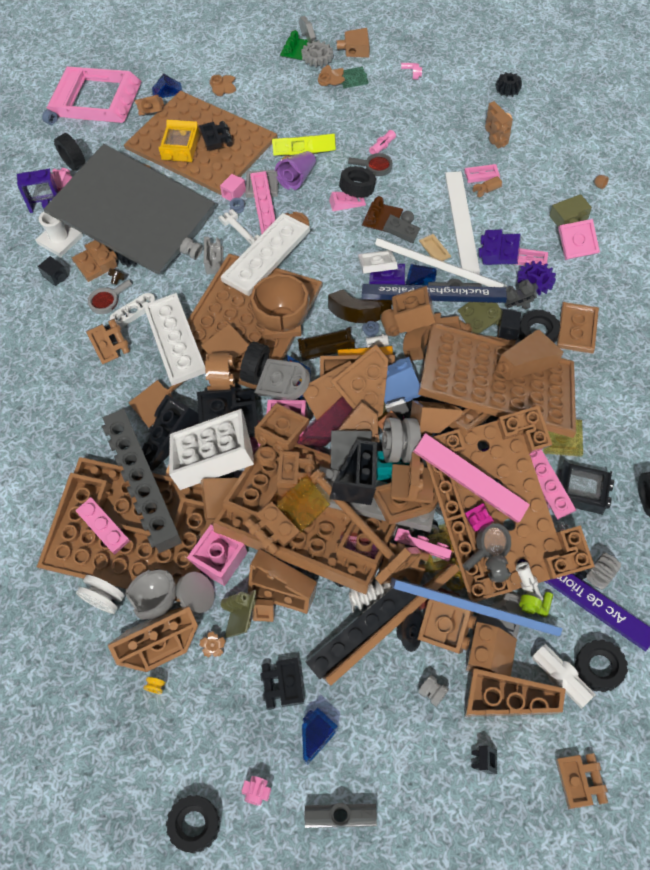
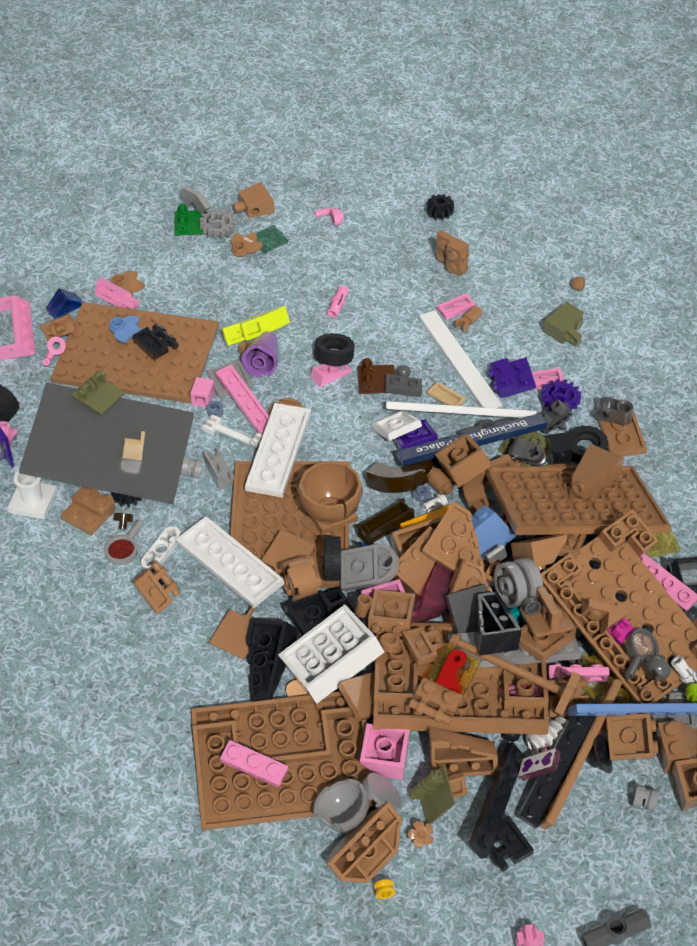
camera: 25 degrees left, 10 degrees down
(52, 271) = (49, 535): black brick -> none
(100, 594) = (289, 825): white wheel -> none
(136, 122) = (53, 351): none -> bright pink plate
(139, 163) = (98, 393): none -> olive hinge
(145, 217) = (134, 448): none -> tan panel
(168, 535) = (299, 720): dark grey brick -> none
(179, 141) = (119, 357): yellow window -> none
(200, 117) = (124, 327): none -> medium blue plate
(207, 91) = (115, 294): none -> bright pink hinge
(258, 414) = (363, 605): none -> medium nougat hinge
(289, 641) = (496, 801): none -> black plate
(300, 505) = (453, 670): none -> red leg
(316, 733) = (558, 872): clear blue slope -> none
(345, 621) = (539, 764): none -> tile
(378, 163) = (342, 323): dark grey piece -> none
(401, 467) = (531, 605): none -> dark grey hinge
(420, 275) = (447, 425): clear blue slope -> none
(470, 501) = (607, 613): none -> medium nougat slope
(471, 478) = (588, 589): bright pink tile -> none
(479, 319) = (527, 452): none -> flat silver piece
(578, 239) = (584, 347): bright pink tile -> none
(579, 305) = (616, 410): none -> flat silver piece

